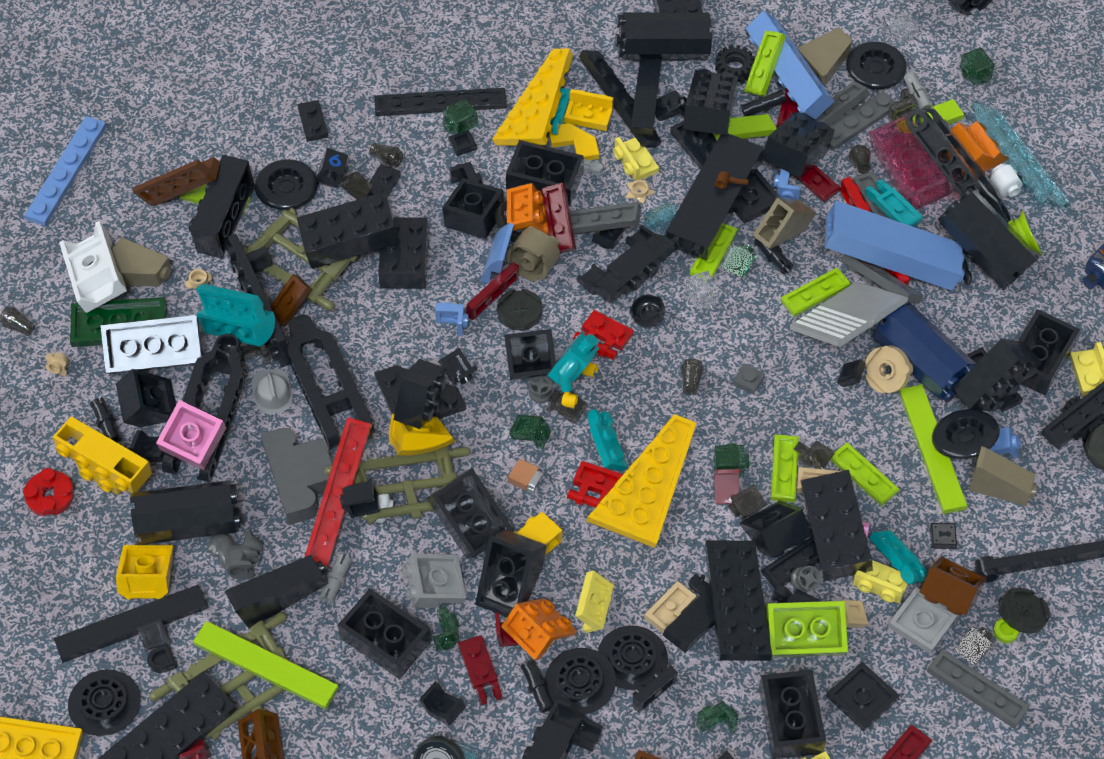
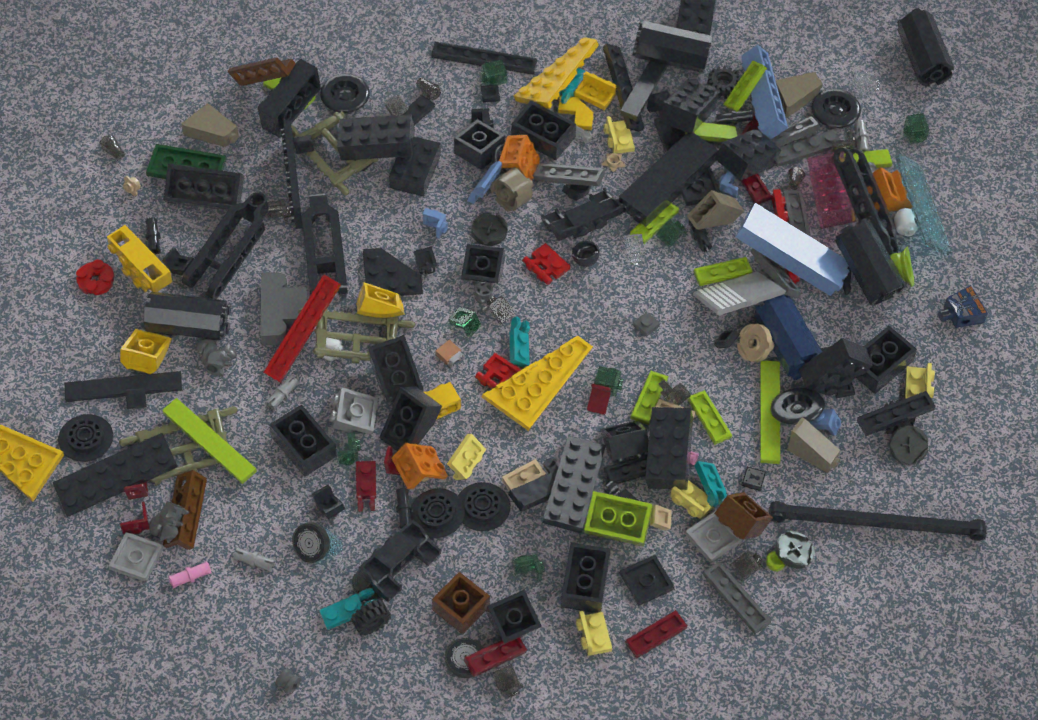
camera: 15 degrees right, 0 degrees up
(65, 171) = (185, 44): medium blue plate -> none
(94, 282) = (178, 122): white piece -> none
(145, 398) = (187, 226): black slope -> none
(161, 659) = (136, 418): black tile -> none
(191, 435) = (207, 260): bright pink brick -> none
(198, 274) = (255, 145): tan plate -> none
(235, 314) = (270, 180): teal brick -> none
(272, 391) = (283, 244): light grey piece -> none
(276, 590) = (233, 388): black slope -> none
(290, 299) = (317, 179): reddish brown plate -> none
(312, 120) = (381, 50): black plate -> none
(332, 167) = (383, 88): black brick -> none
(360, 499) = (315, 337): black window -> none
(420, 393) = (386, 271): black brick -> none
(492, 291) = (472, 210): dark red tile -> none
(559, 216) = (541, 166): dark red tile -> none
(573, 362) = (509, 277): teal torso -> none
(660, 217) = (620, 184): clear light blue brick -> none
(660, 683) = (495, 530): black plate -> none
(691, 375) = (602, 310): clear smoke cone -> none
(724, 178) = (677, 166): reddish brown hand -> none
(746, 502) = (609, 415): clear smoke bracket -> none
(811, 577) = (637, 481): dark grey wheel -> none
(893, 204) = (807, 219): teal hinge -> none

